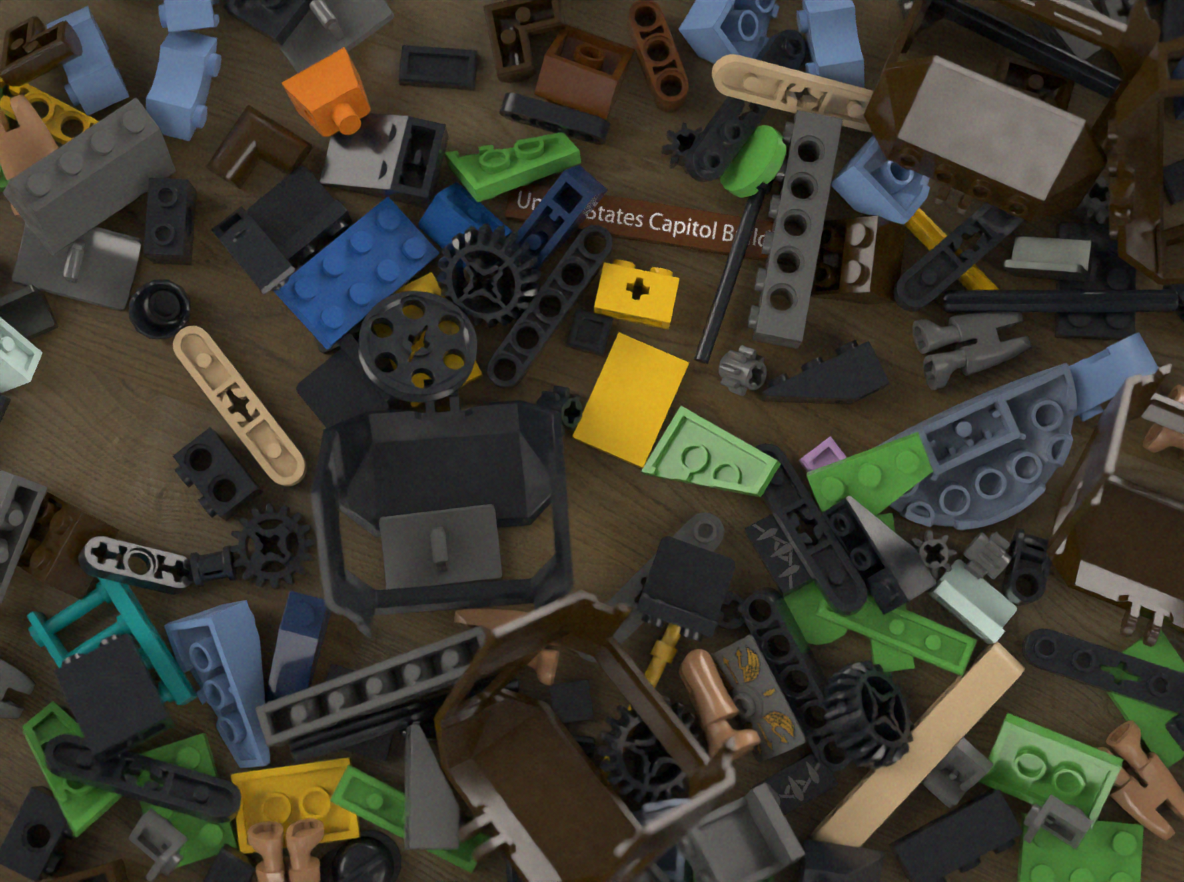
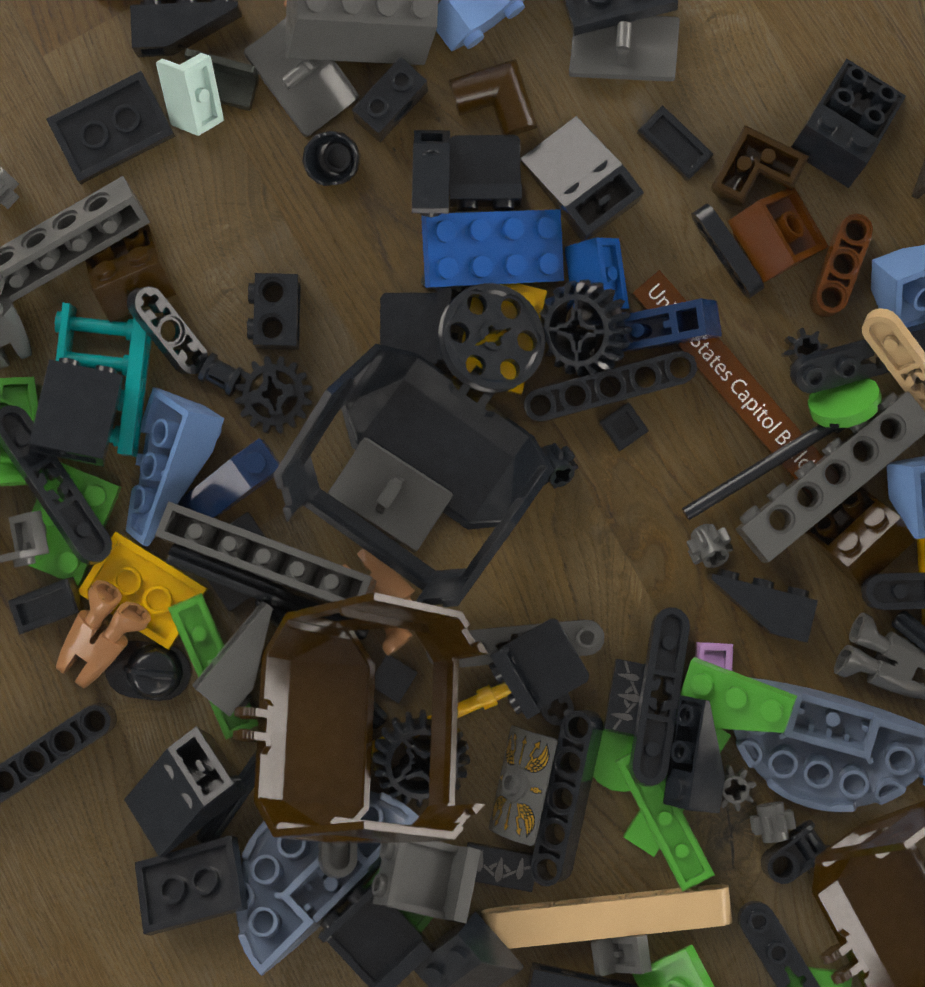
camera: 40 degrees right, 5 degrees up
(216, 377) = (332, 239): tan piece -> none
(330, 95) = (579, 101): orange torso -> none
(502, 170) = (657, 257): bright green wing -> none
(630, 400) = (612, 500): yellow tile -> none
(652, 308) = (682, 448): yellow brick -> none
(709, 457) = (634, 588): bright green wing -> none
(713, 704) = (489, 764): medium nougat piece -> none
(868, 715) = (592, 863): black gear -> none
(973, 602) = (735, 846): light aqua panel -> none

